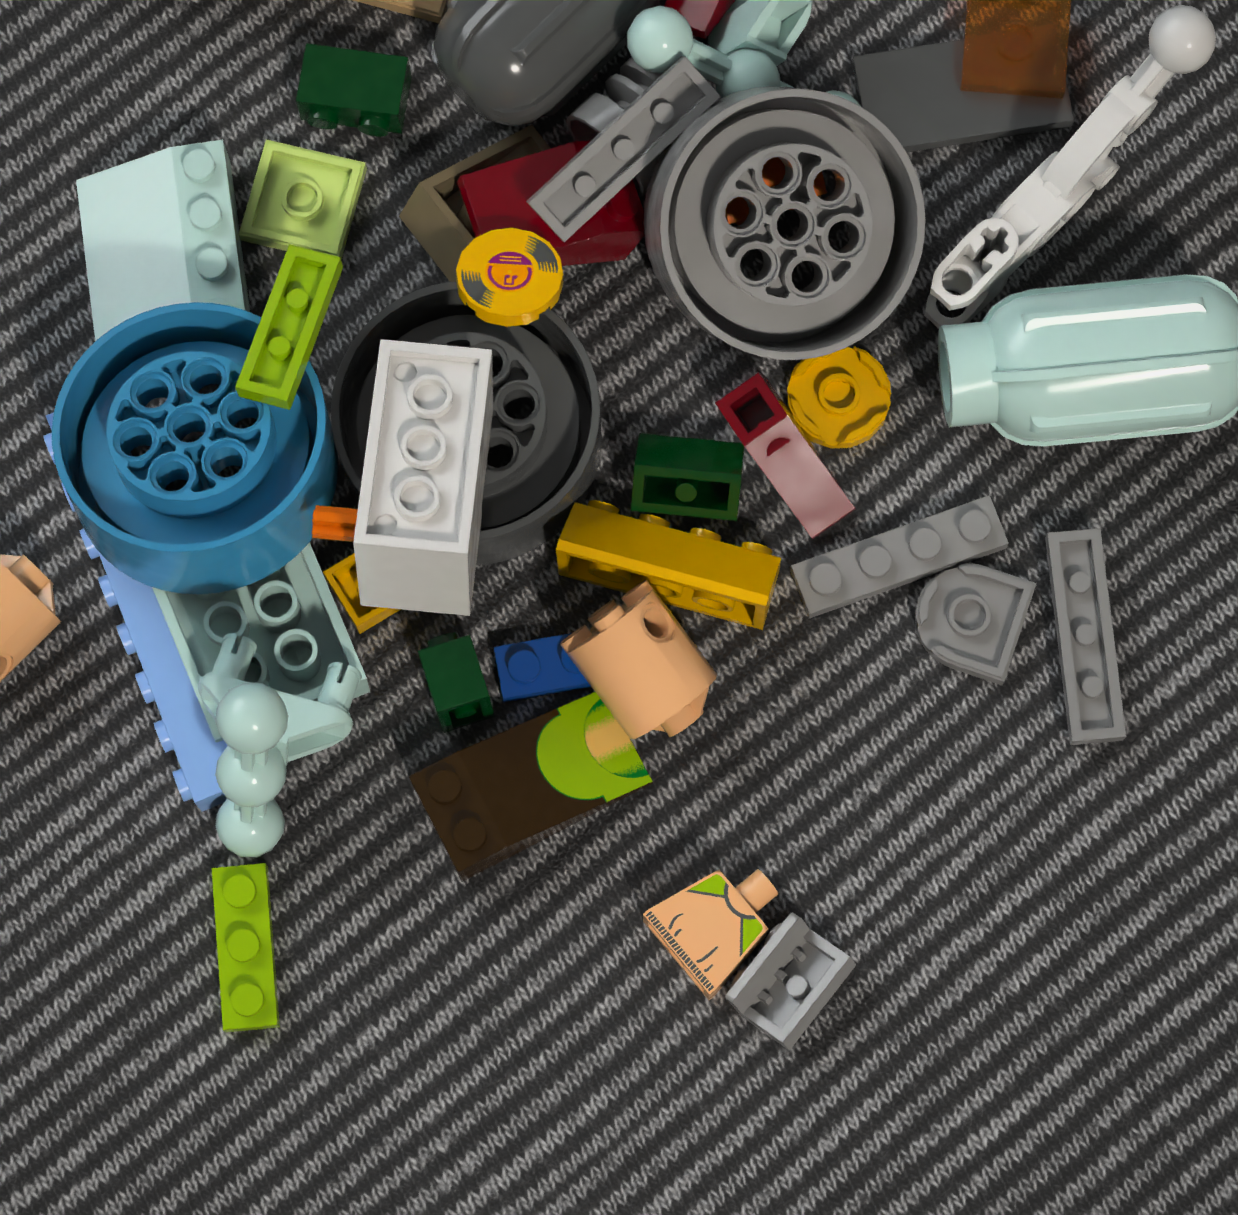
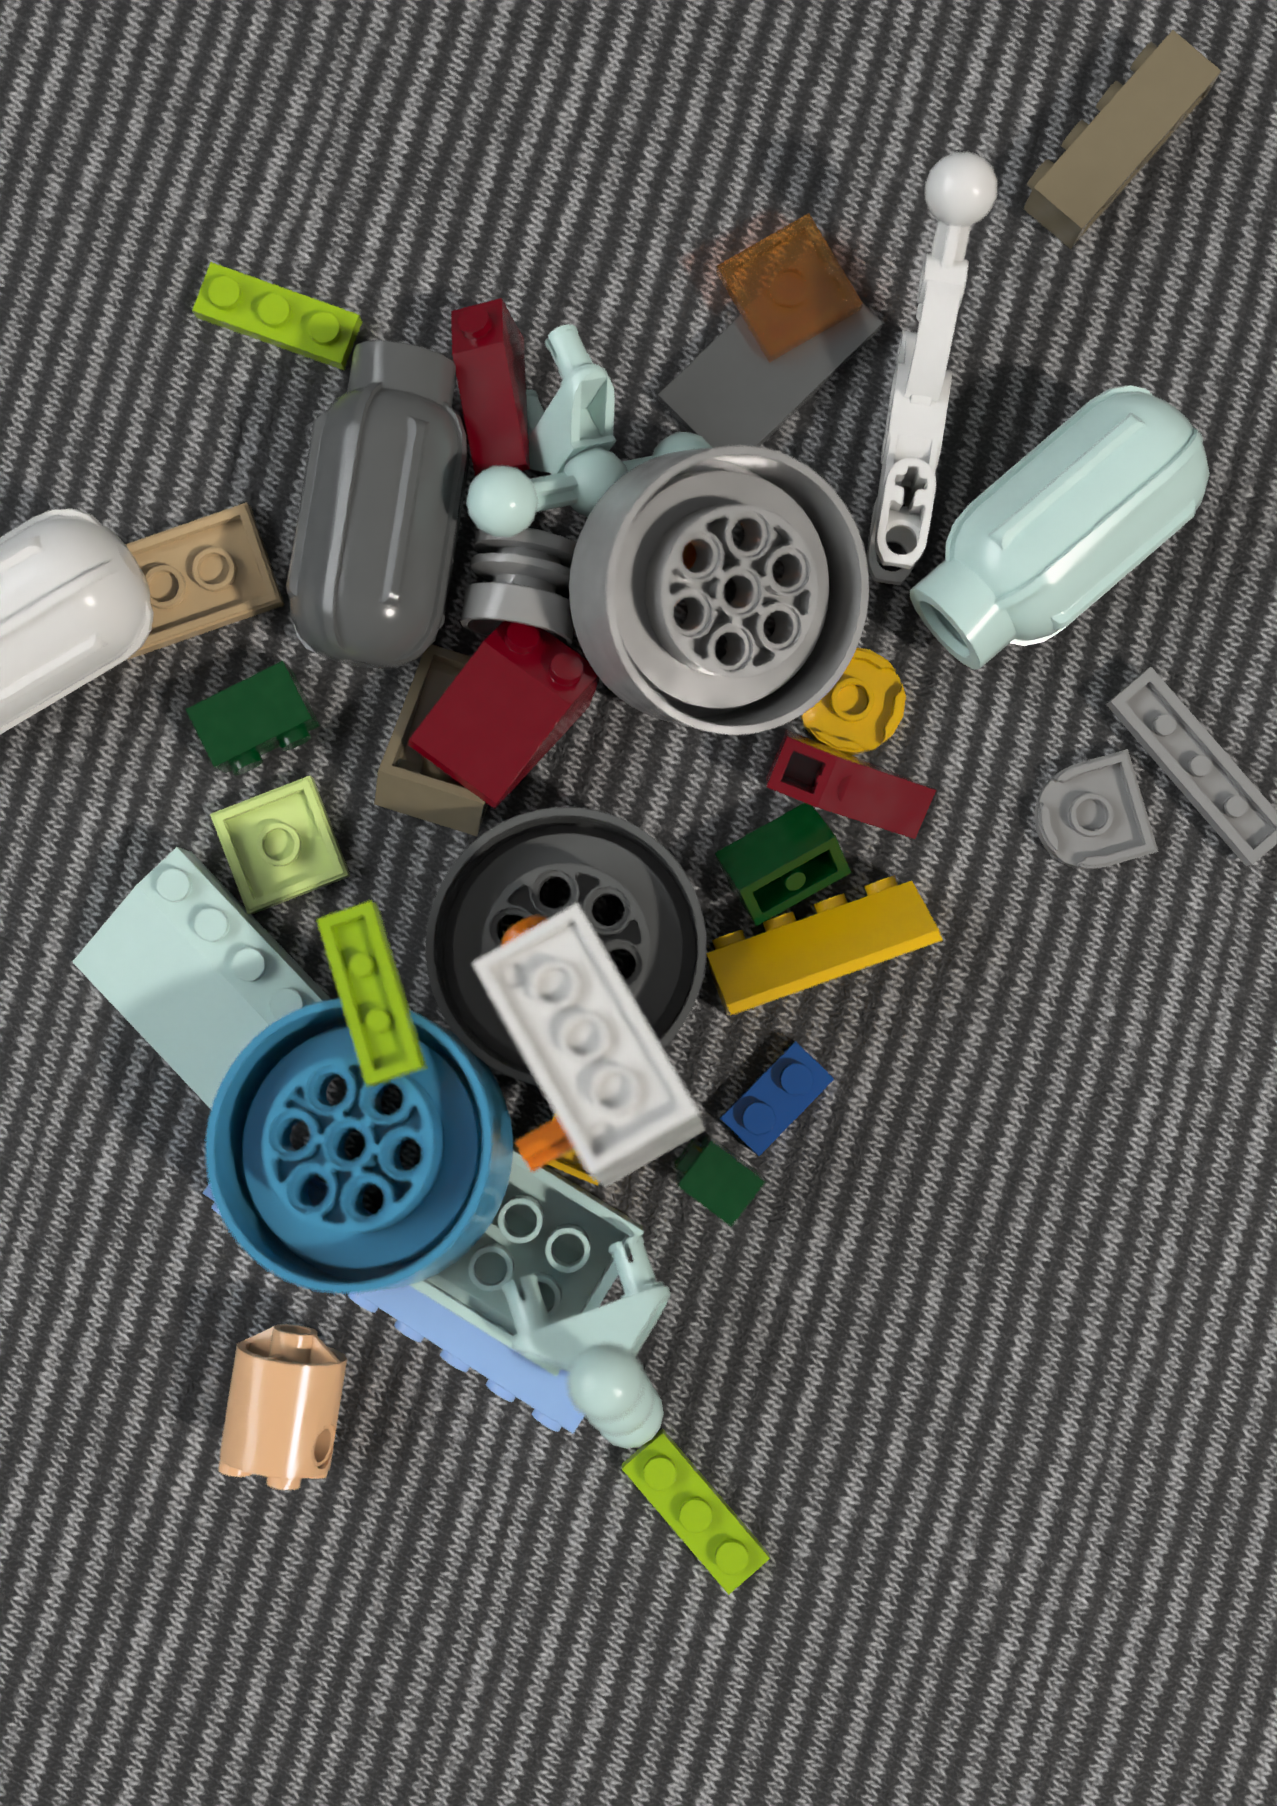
camera: 35 degrees left, 10 degrees up
(509, 276) = (521, 804): yellow tile -> none
(528, 783) = (832, 1213): dark brown slope -> none
(623, 148) = (540, 621): light grey plate -> none
(642, 664) = (863, 1054): light nougat cylinder -> none
(712, 926) = (1068, 1227): light nougat torso -> none
(789, 981) = (1162, 1227): light grey bracket -> none
(899, 556) = (997, 804): light grey plate -> none

